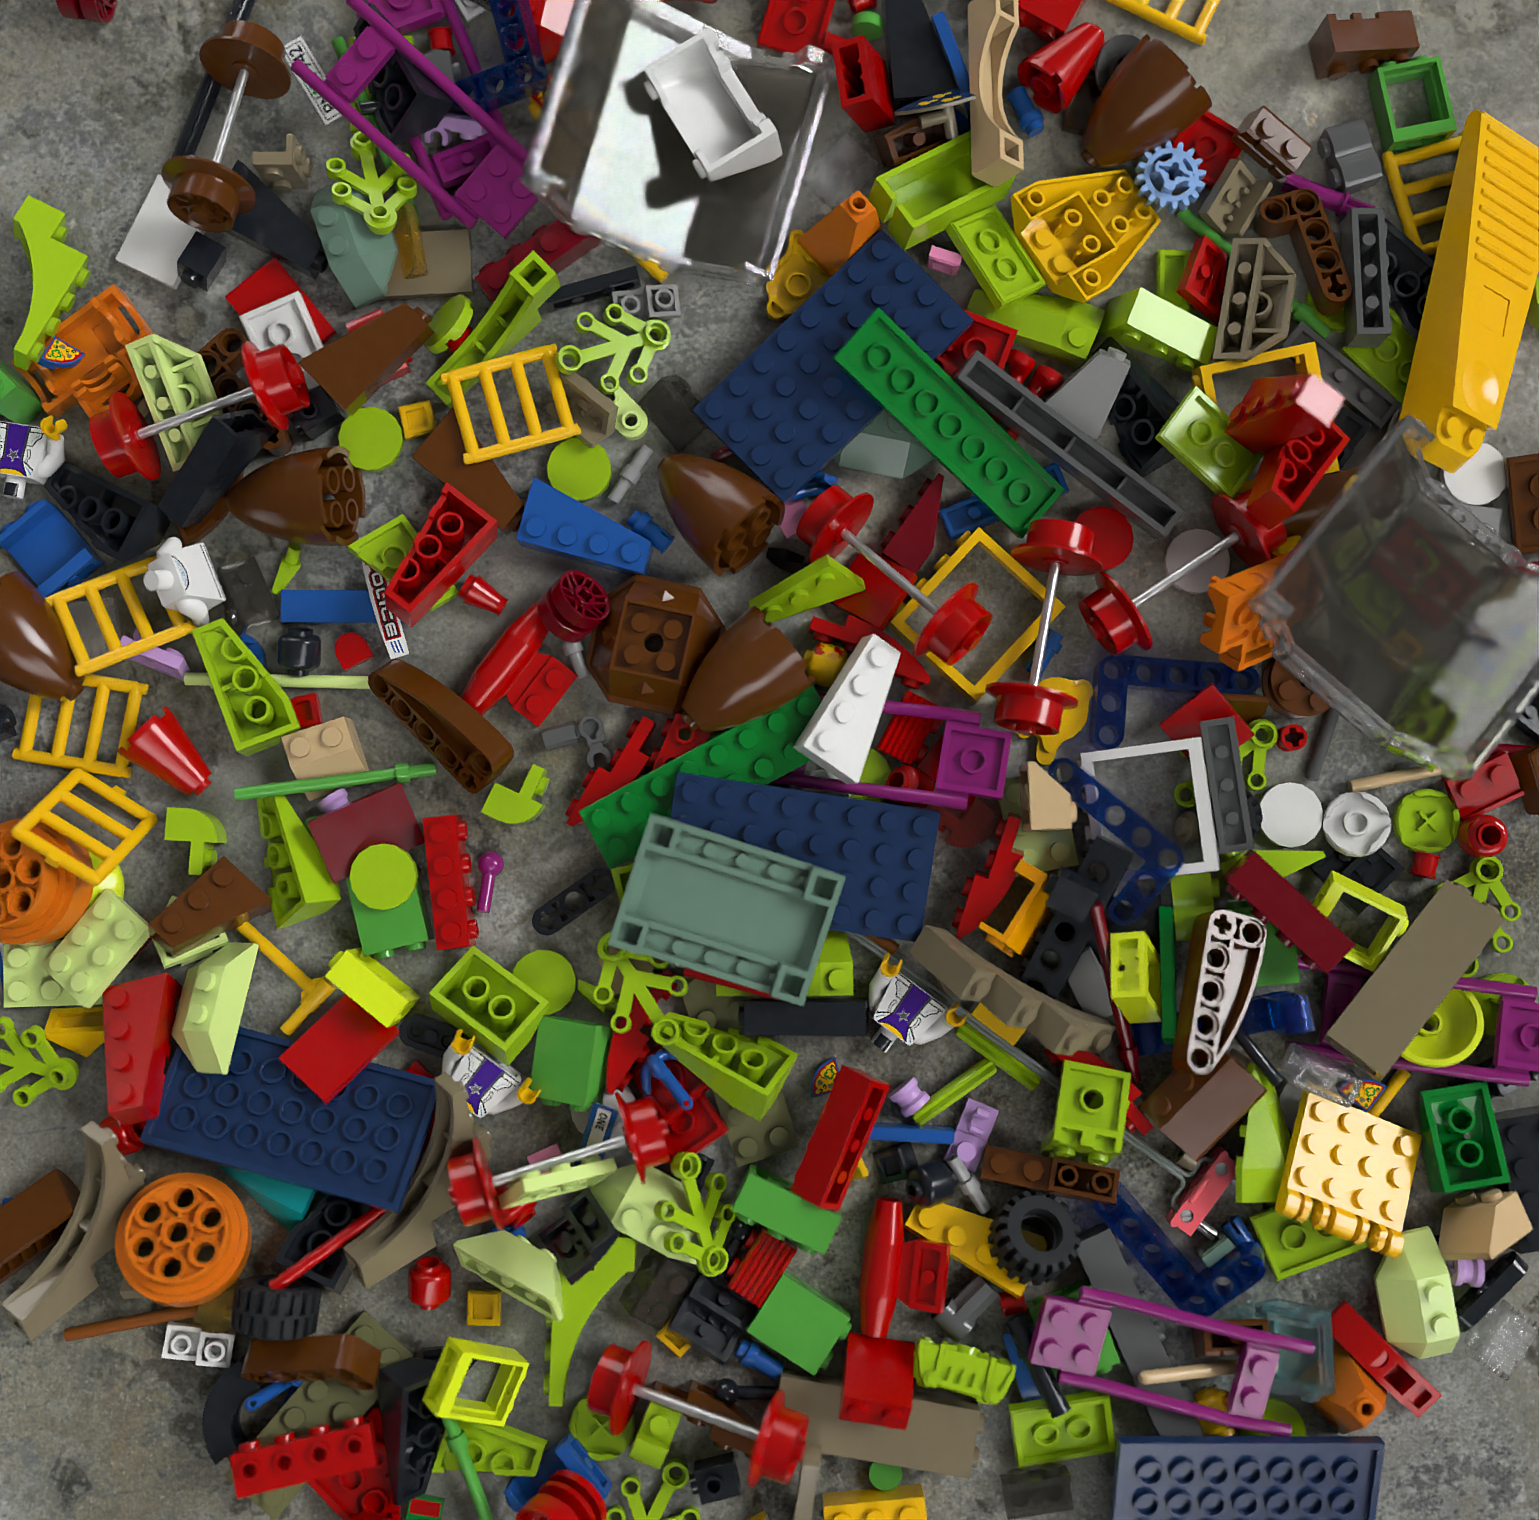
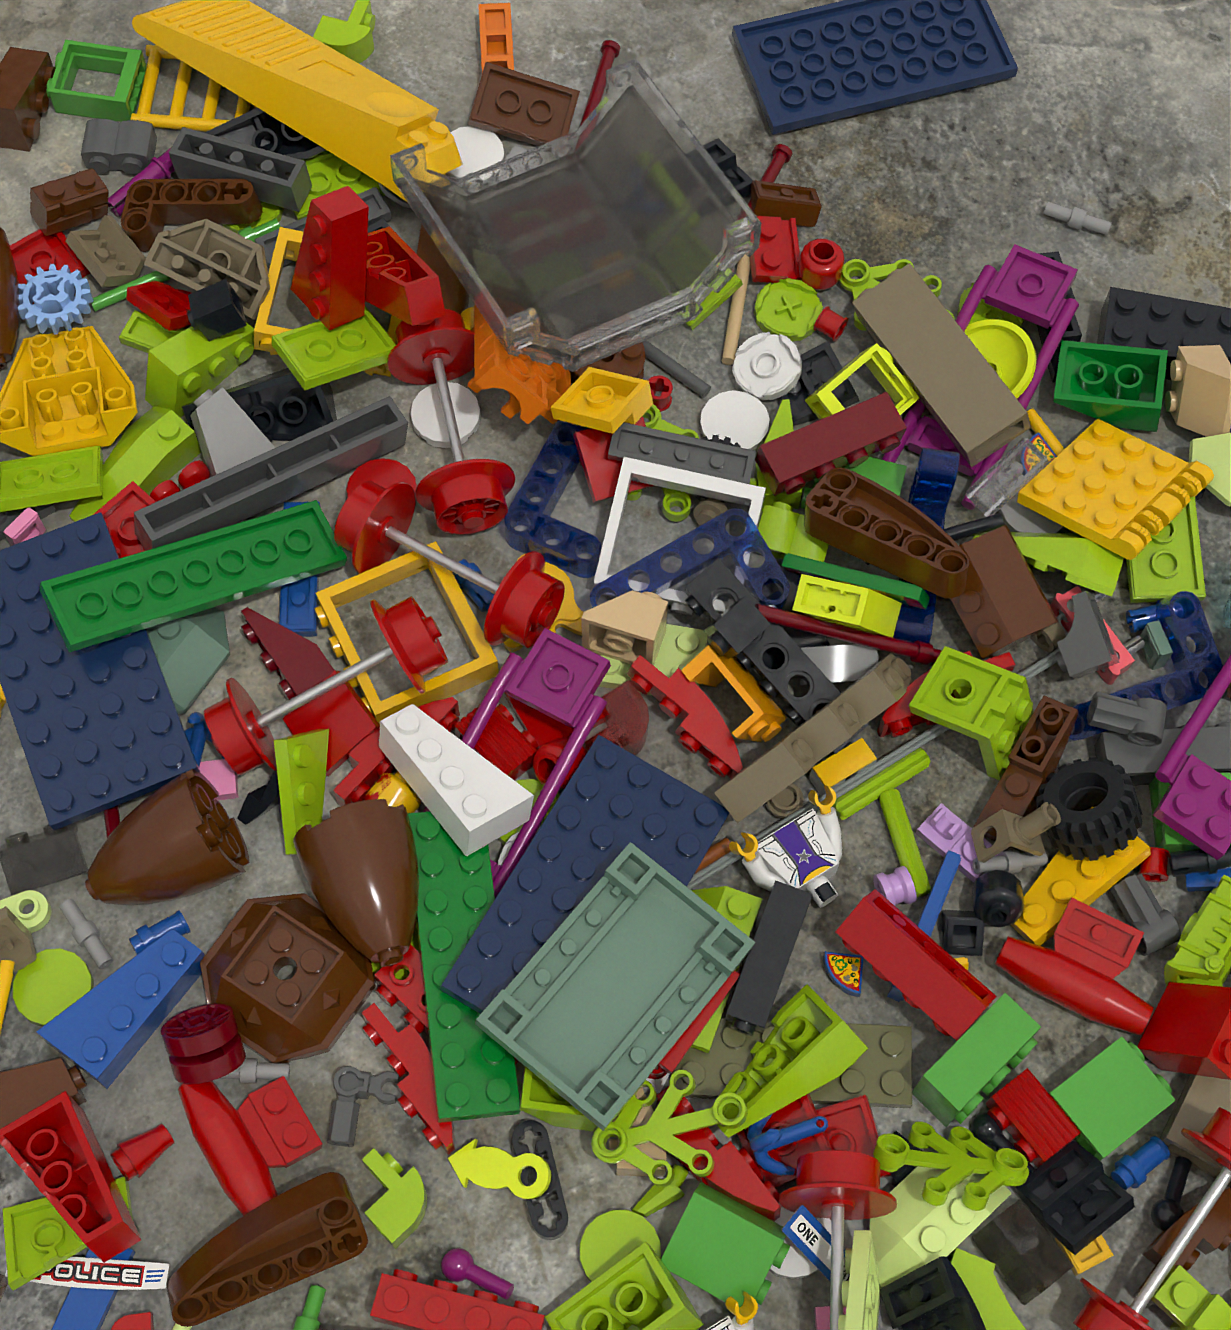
camera: 70 degrees left, 20 degrees down
(568, 867) = (499, 1169): none -> neon yellow brick
(988, 1182) = (1015, 831): none -> dark tan bracket
(1129, 1257) = (1139, 719): none -> dark grey piece
(1187, 1194) = (1087, 644): none -> dark grey arch
(1204, 326) = (216, 310): none -> black brick
(1248, 698) = (603, 400): none -> yellow plate

